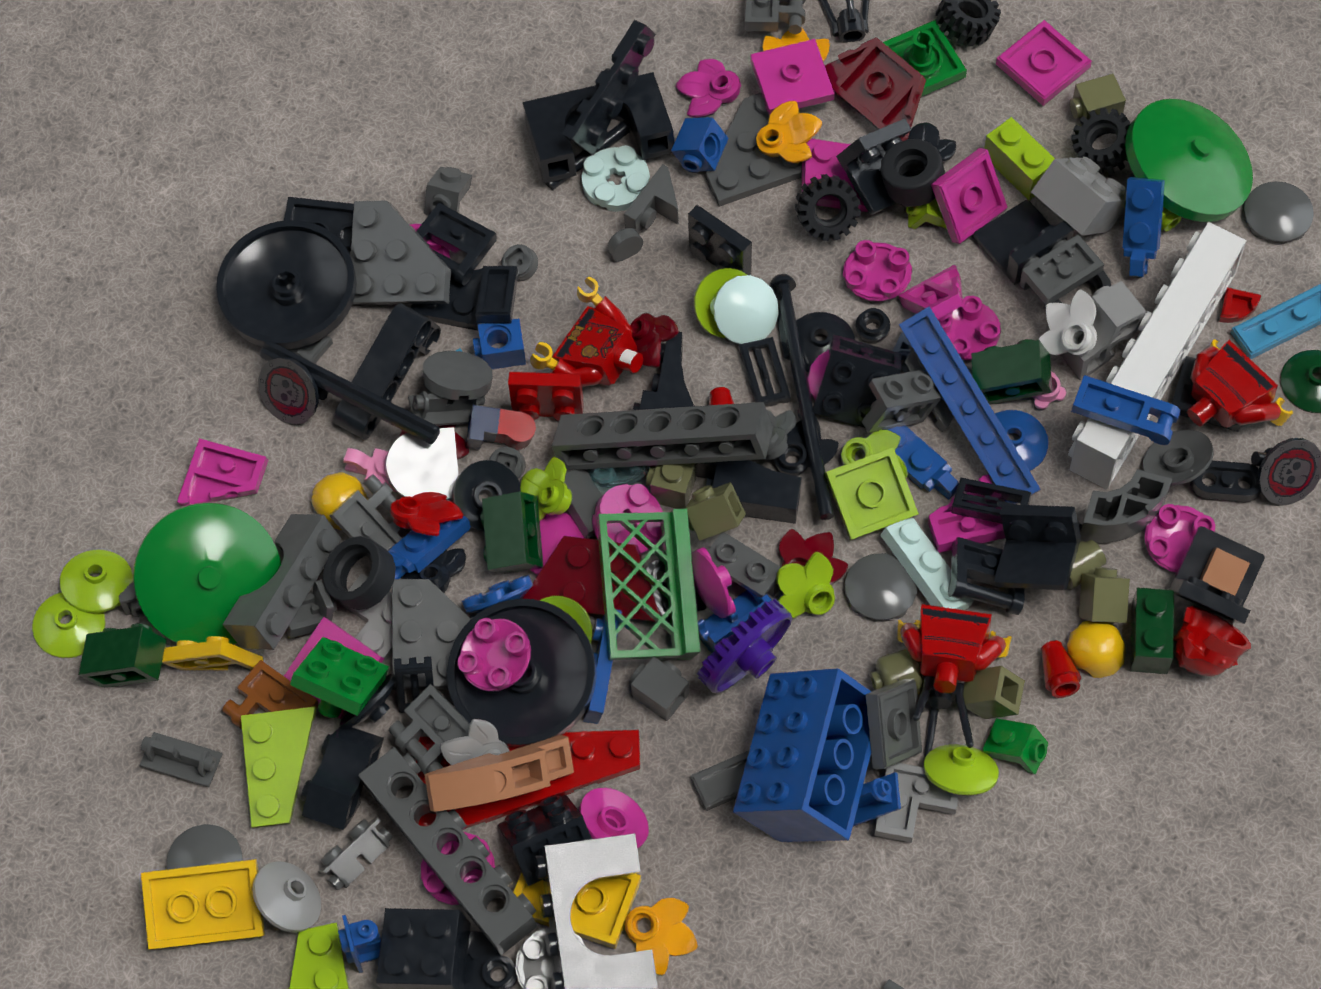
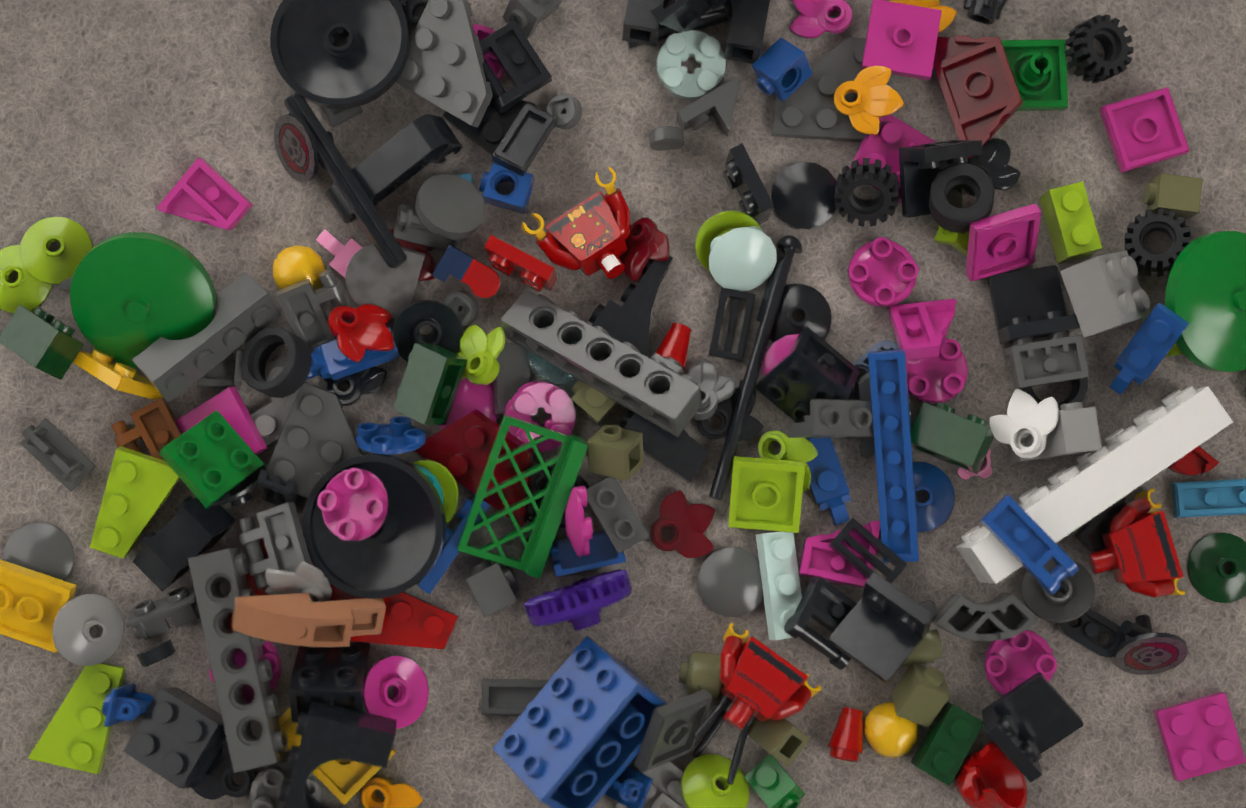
camera: 20 degrees right, 20 degrees up
(363, 892) = (156, 653): none -> black tile
(776, 239) = (804, 195): none -> black dish
(803, 583) = (663, 558): lime plate -> none
(875, 316) = (856, 315): black plate -> none
(1224, 571) = (1039, 723): nougat tile -> none

